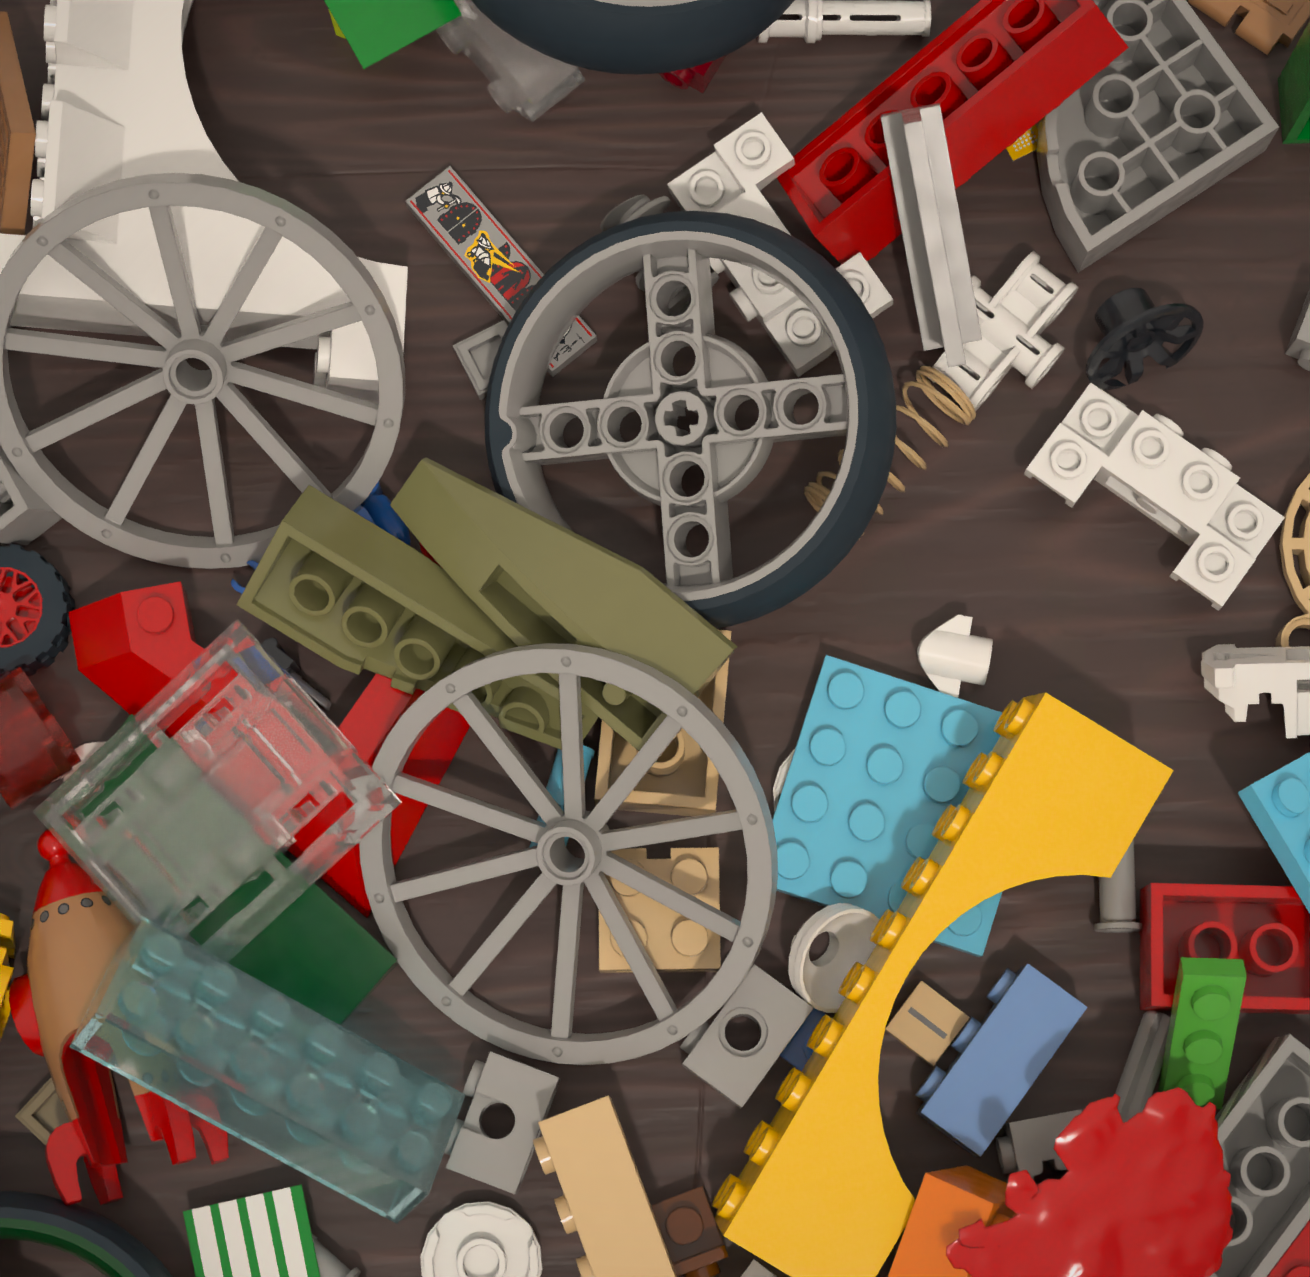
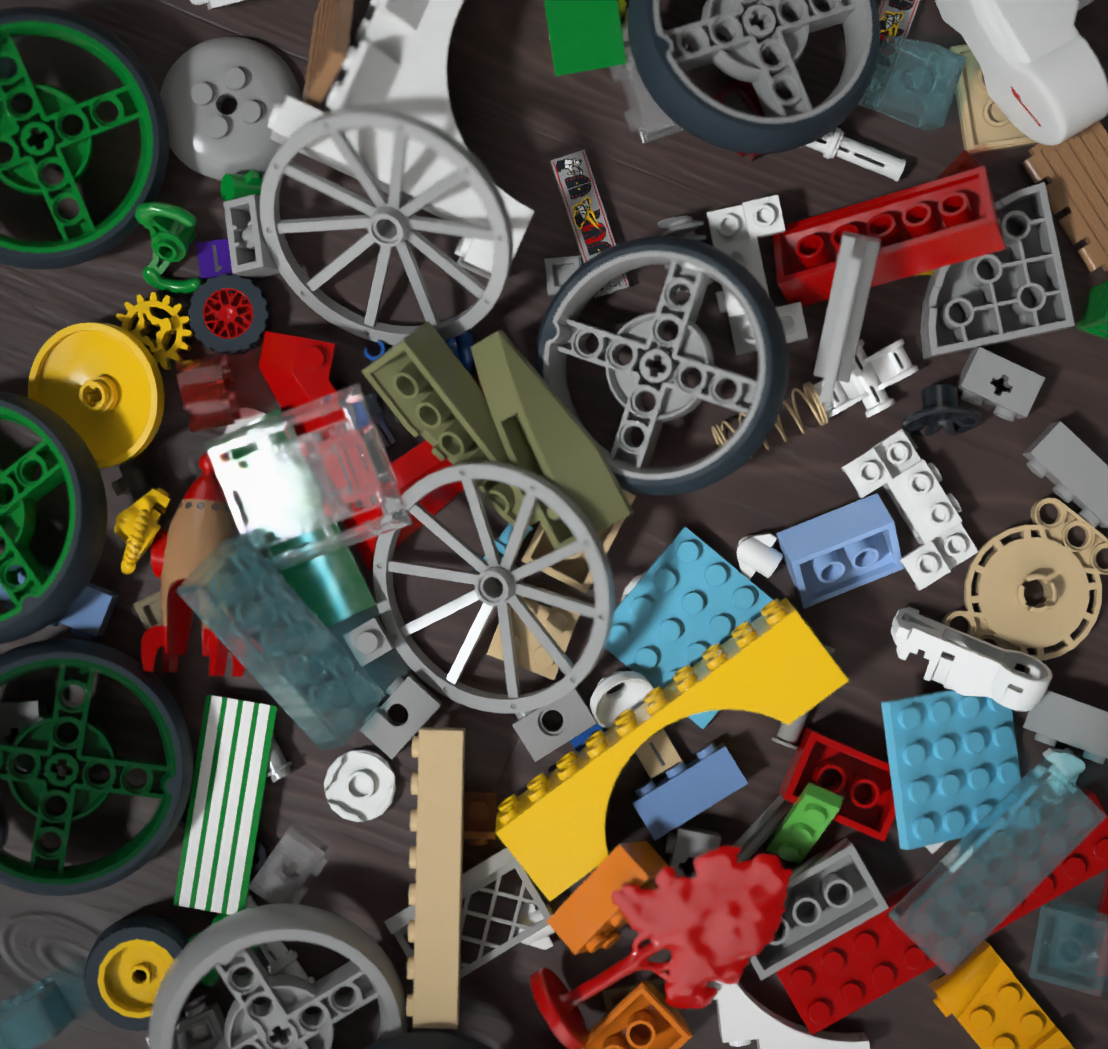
camera: 20 degrees right, 10 degrees up
(408, 1024) = (369, 641): none -> light grey brick
(1077, 597) = (841, 550): none -> light blue slope
(1231, 248) = (1019, 384): none -> light grey brick

